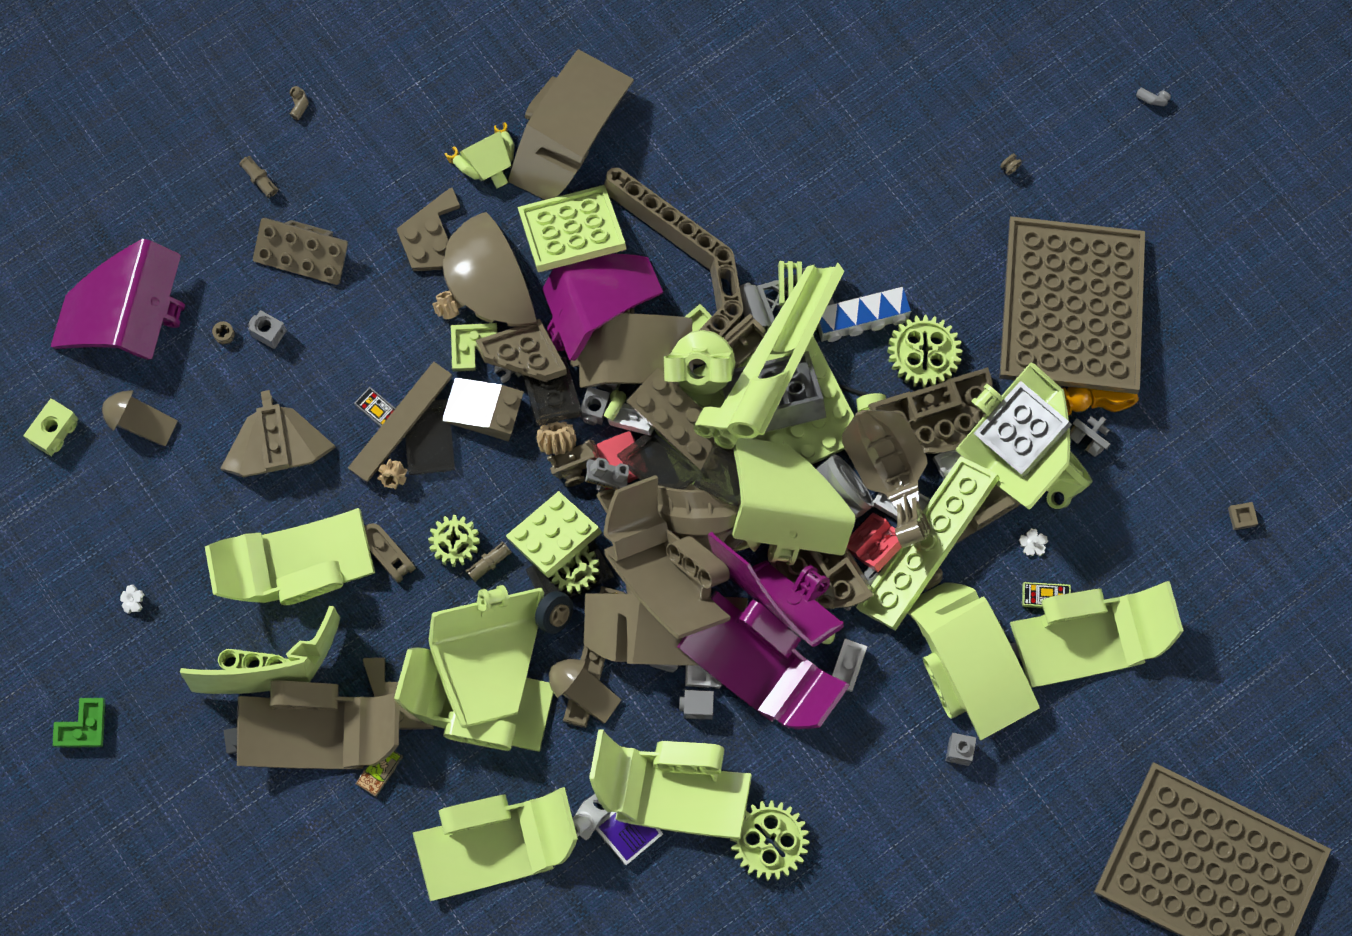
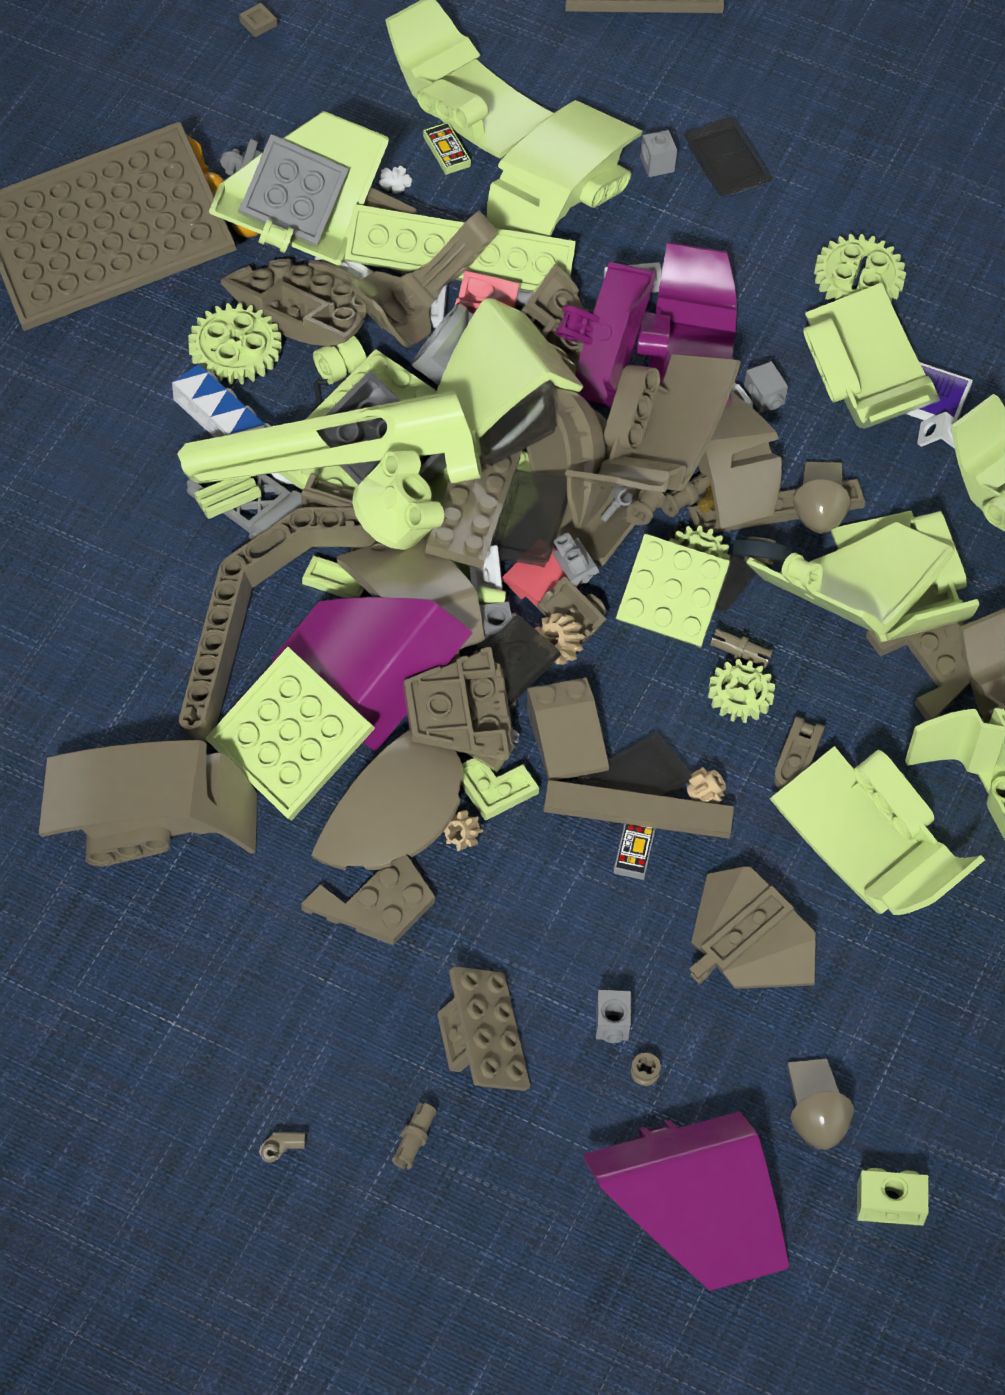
camera: 120 degrees left, 15 degrees down
(486, 157) = (242, 876): yellowish green torso -> none
(528, 319) = (440, 708): none -> dark tan wing
(936, 807) = (727, 157): none -> clear smoke piece

